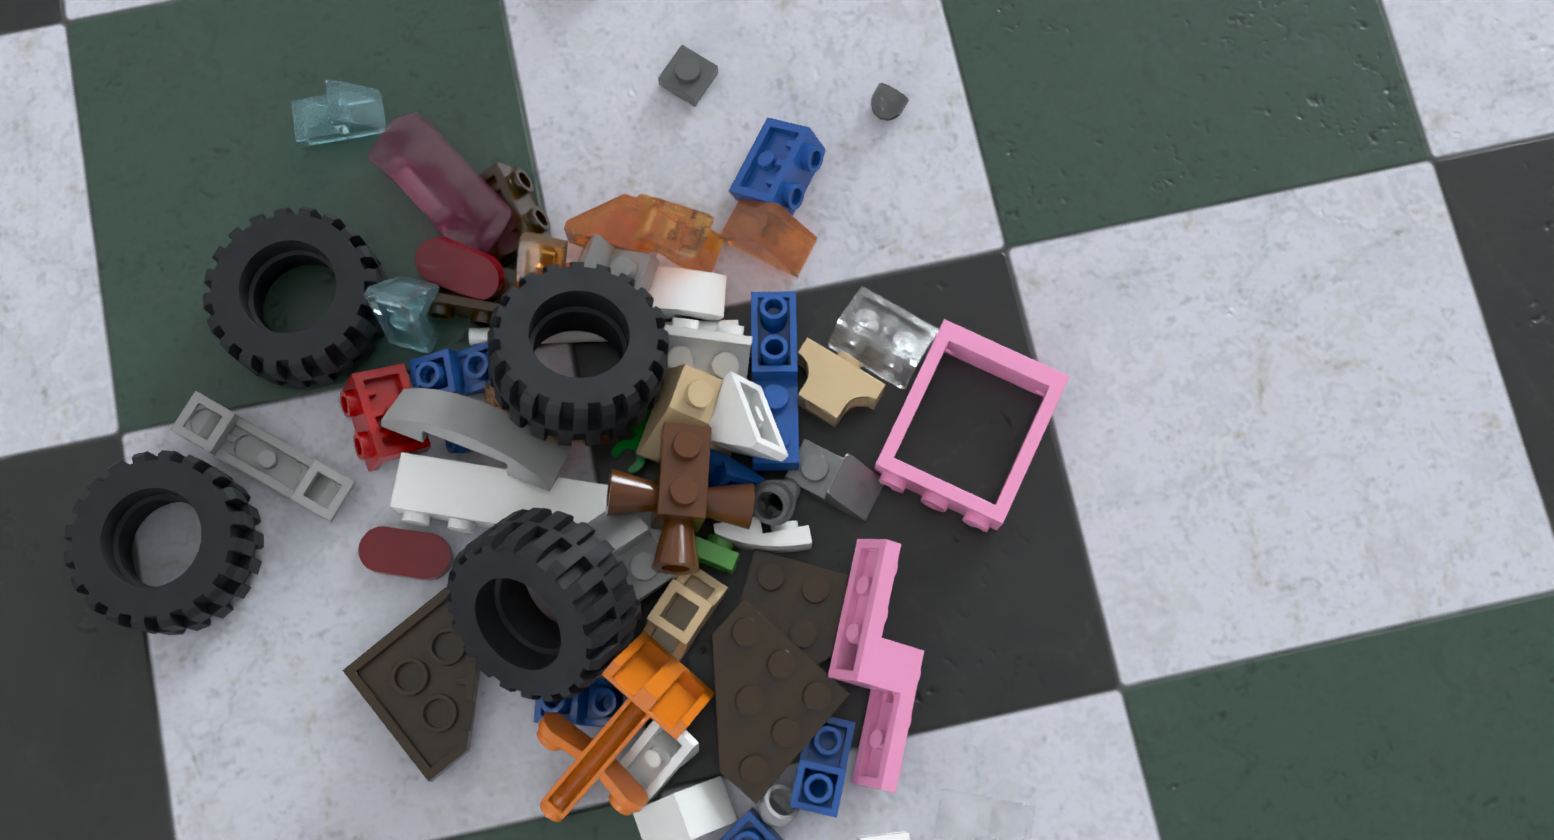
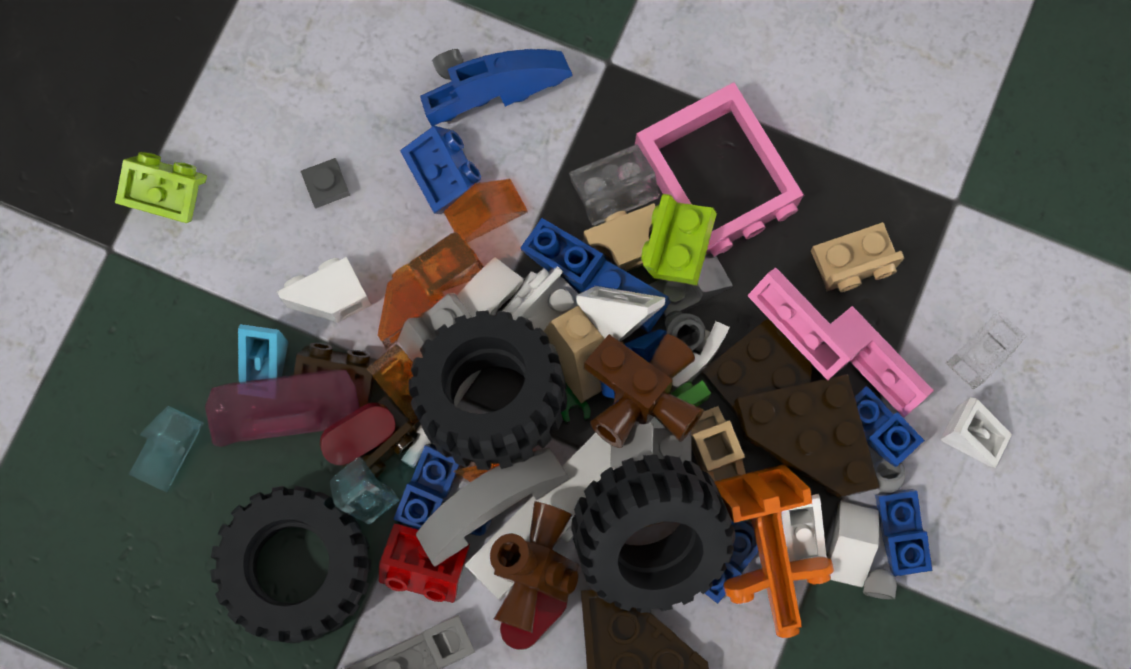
camera: 55 degrees left, 0 degrees up
(431, 511) = (533, 566): none -> reddish brown brick
(479, 133) = (260, 353): none -> medium azure slope
(585, 153) = (328, 293): none -> white slope
(859, 430) = (678, 240): none -> lime bracket
(911, 157) = (504, 74): none -> blue slope
(983, 623) = (856, 257): none -> tan bracket

